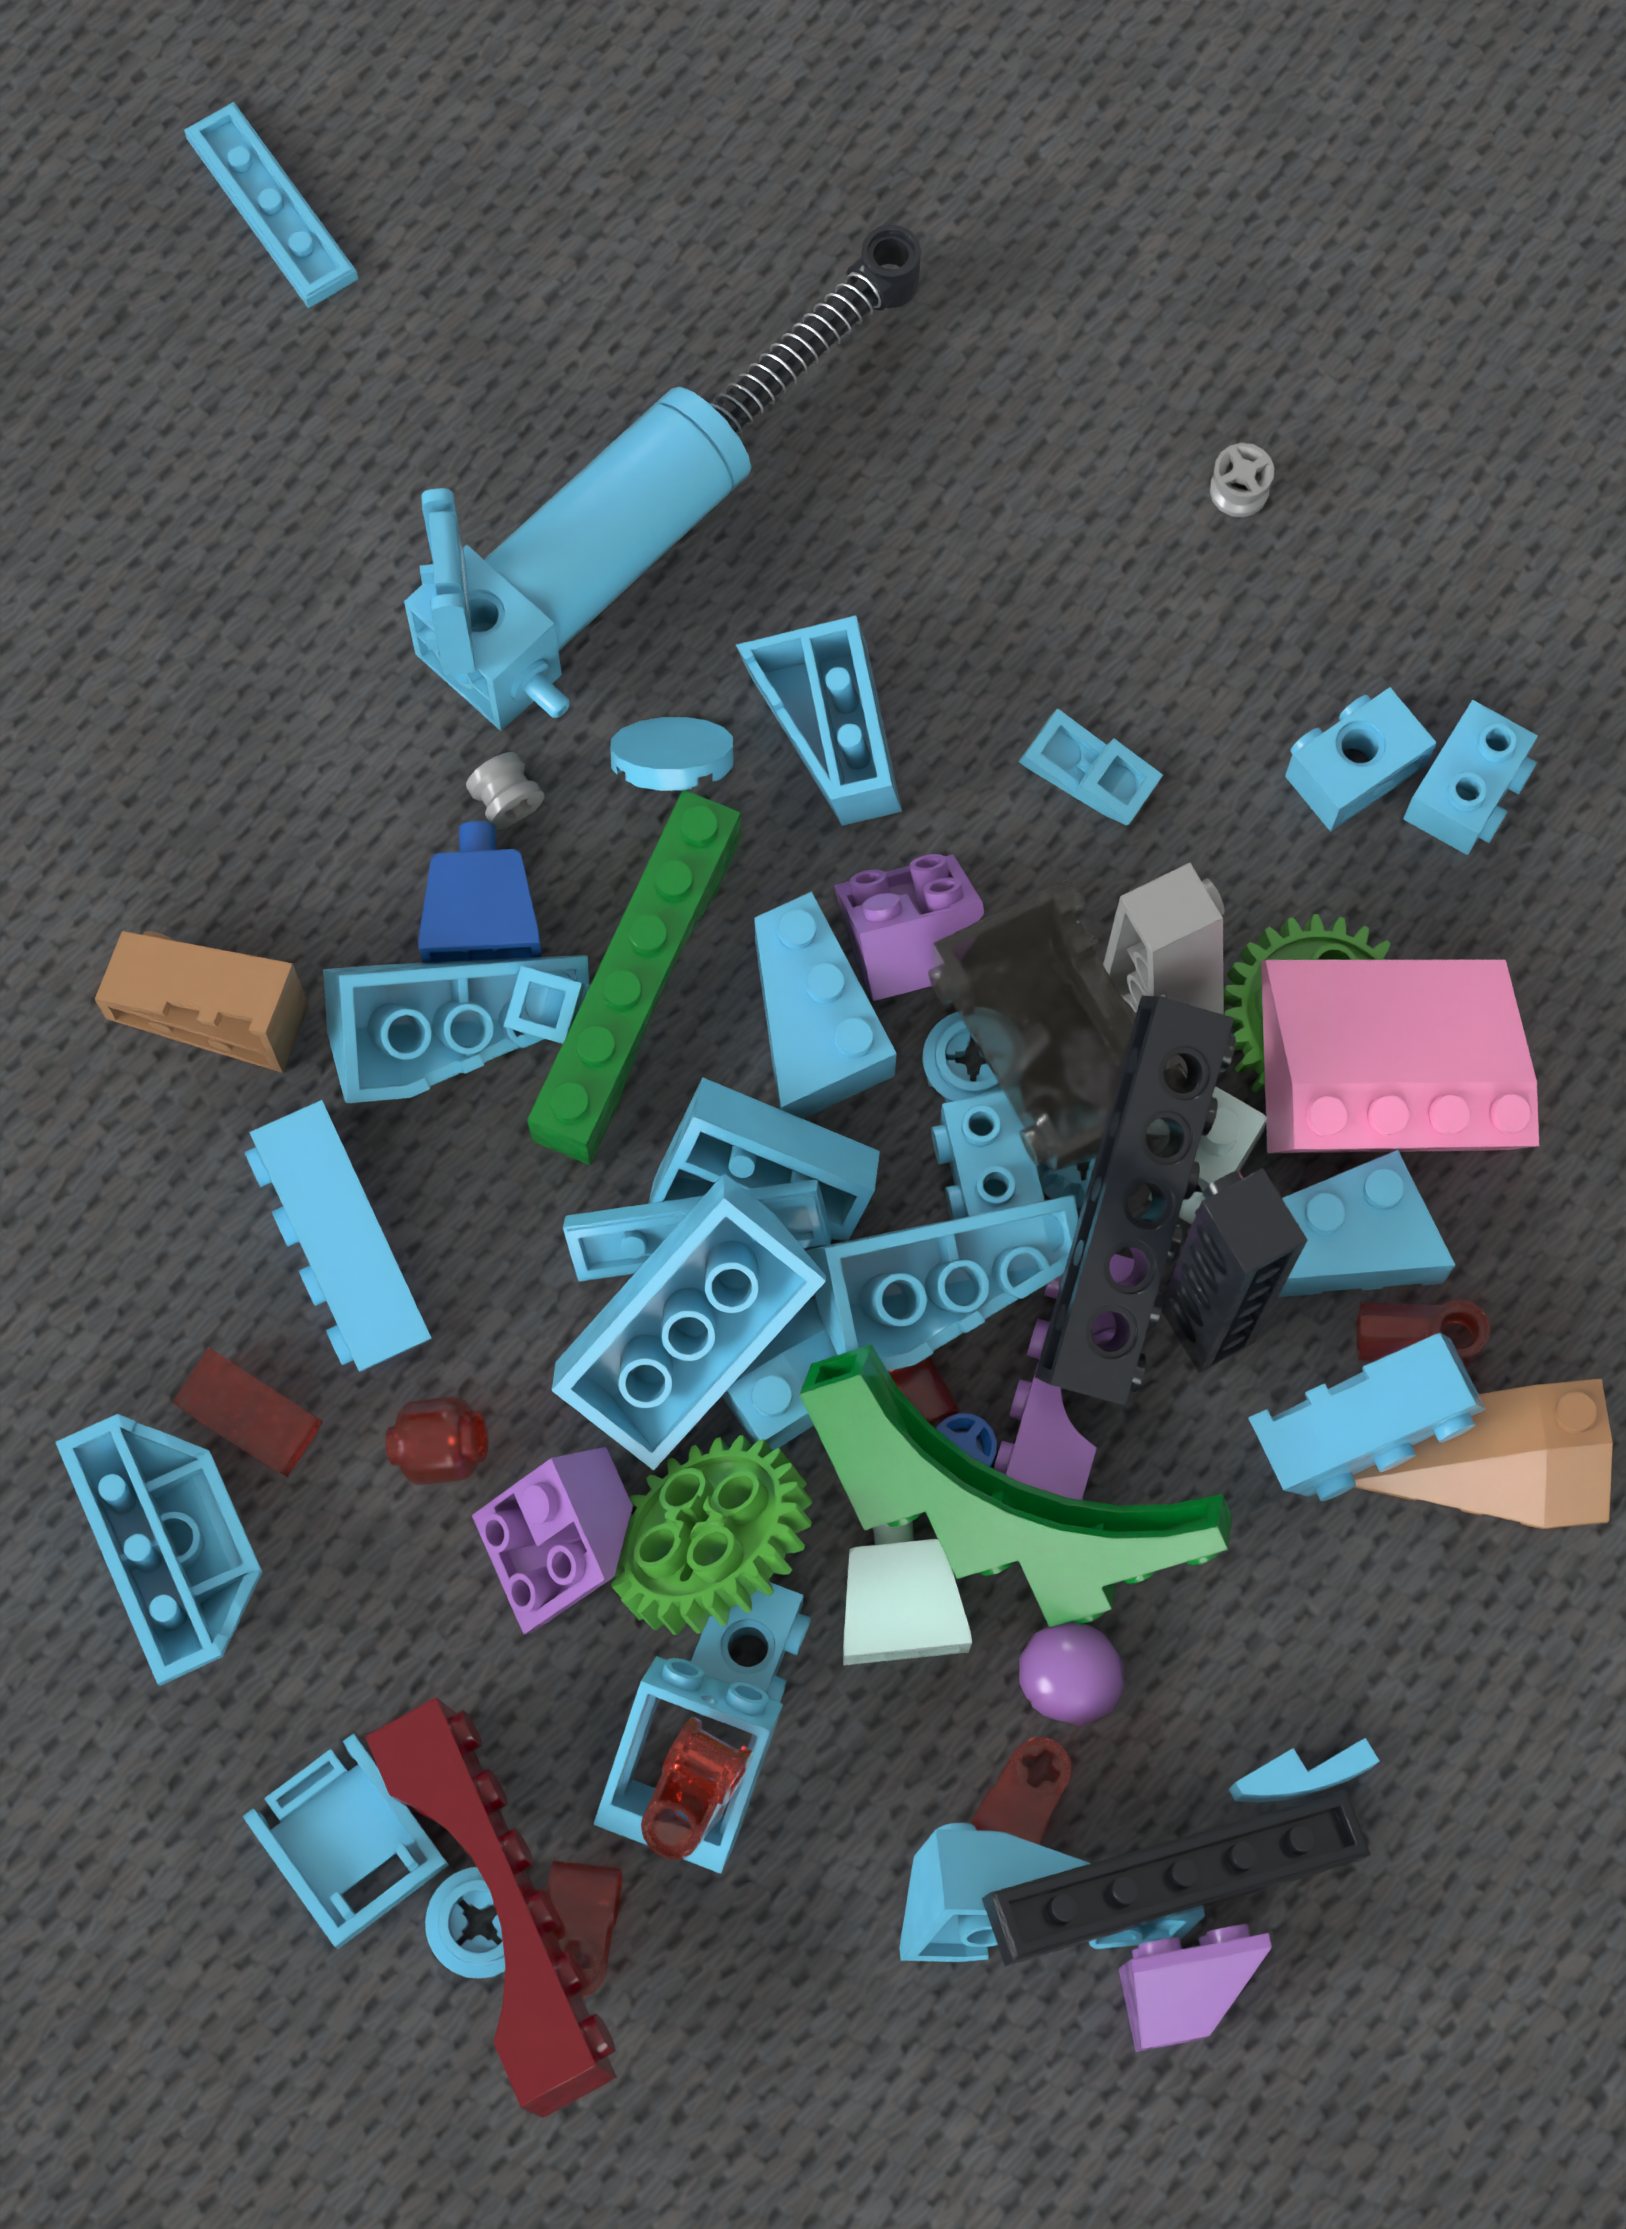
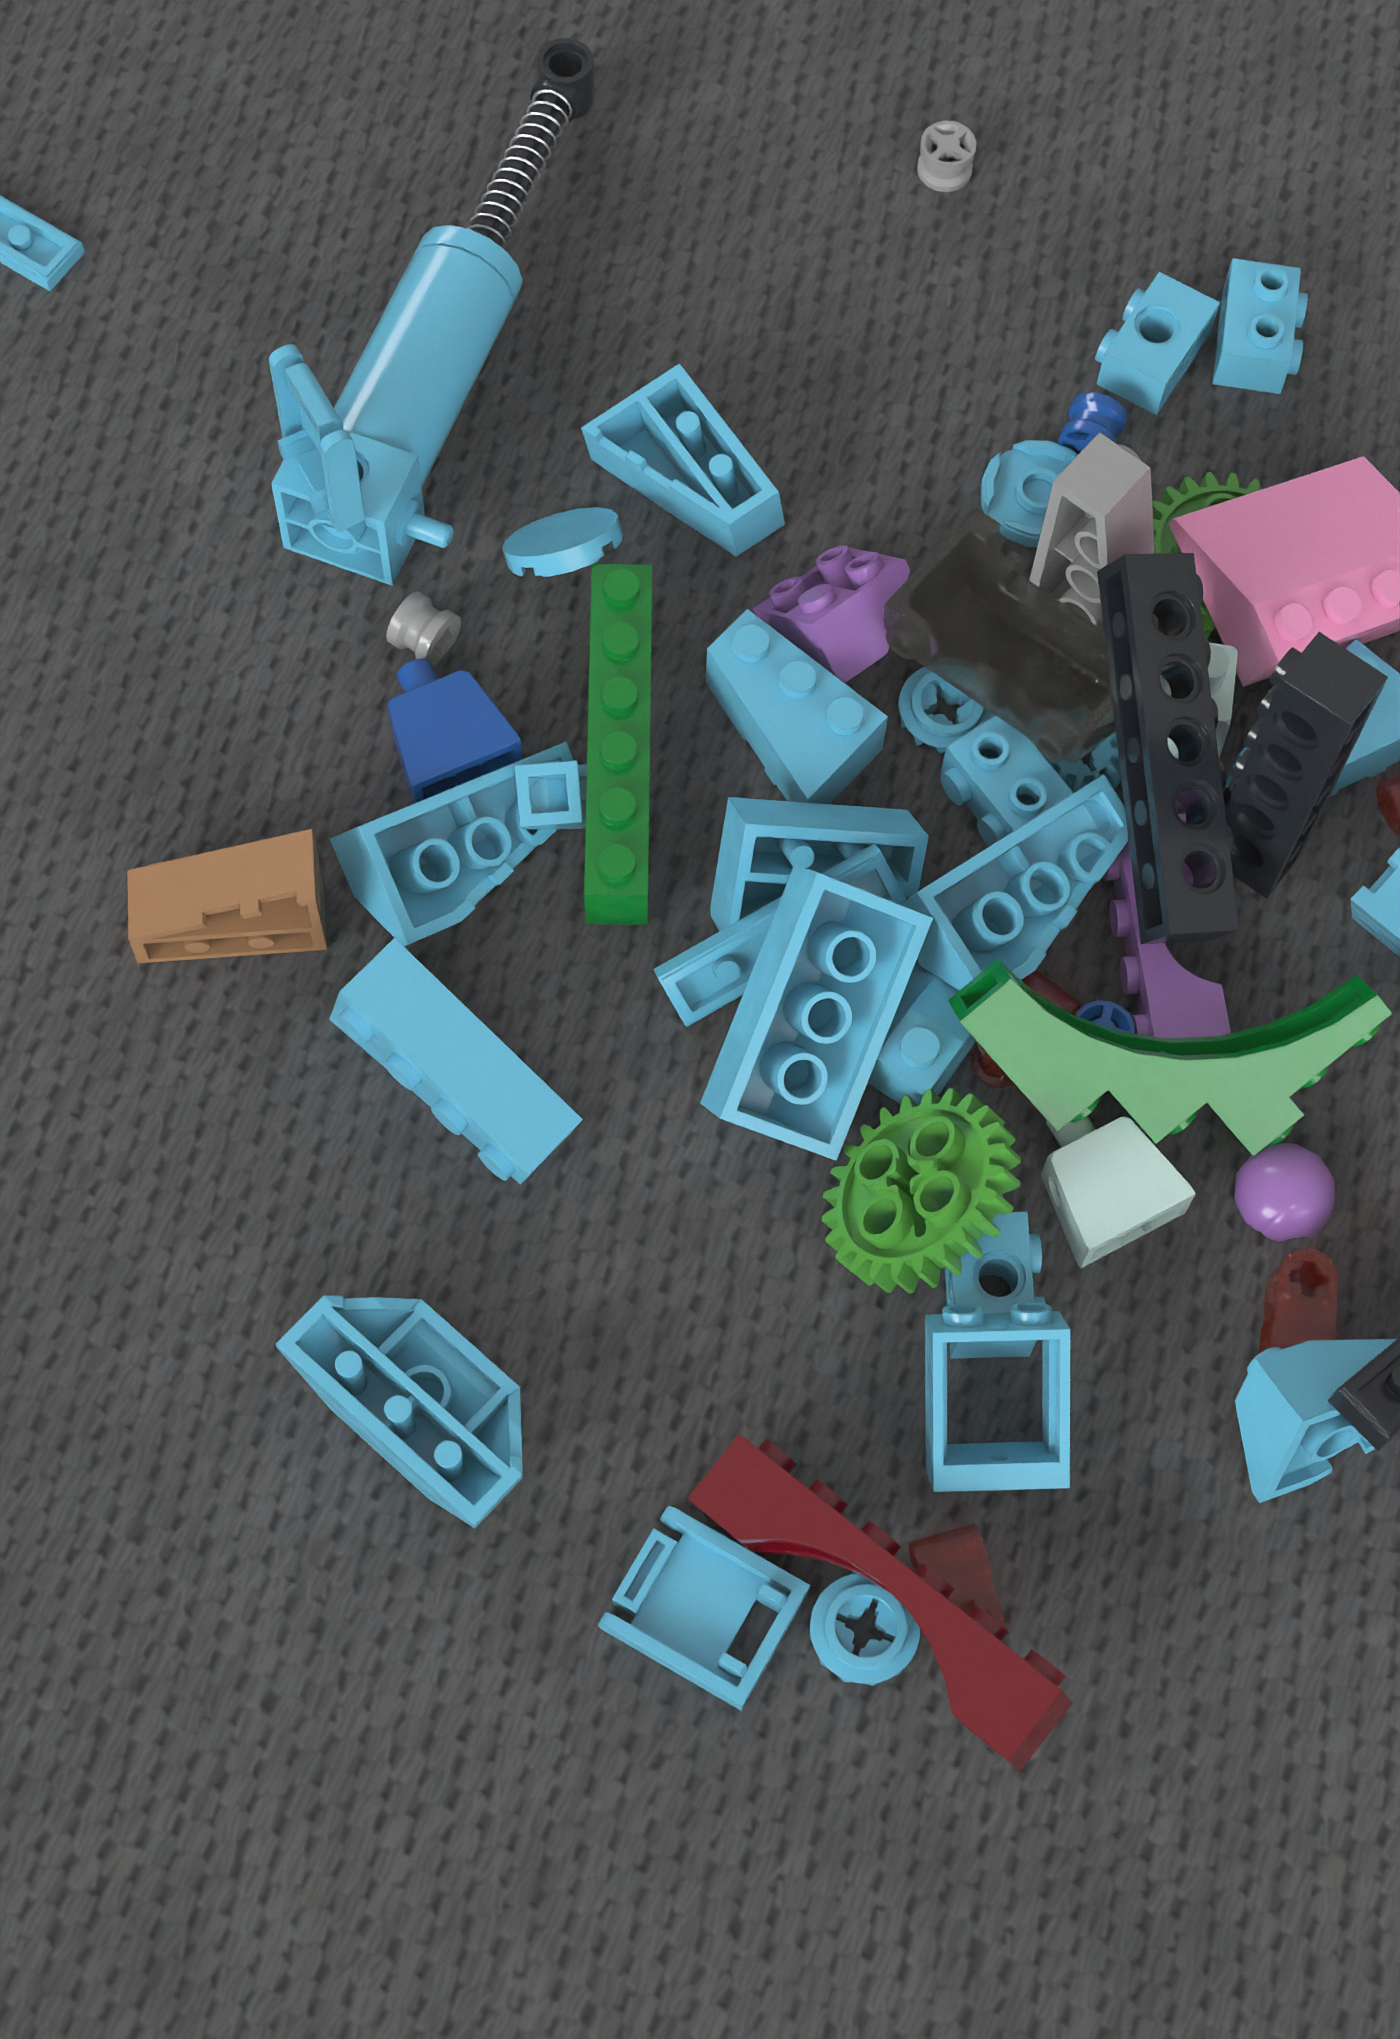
camera: 25 degrees left, 5 degrees down
(247, 1412) = (436, 1256): clear red slope -> none
(437, 1440) = (625, 1212): clear red head -> none
(556, 1534) = (775, 1253): medium lavender slope -> none
(696, 1781) = (1028, 1400): clear red piece -> none
(1096, 773) = (943, 436): medium azure slope -> none
(1169, 836) = (1010, 494): none -> medium azure tile
(1251, 825) = (1089, 416): none -> blue wheel

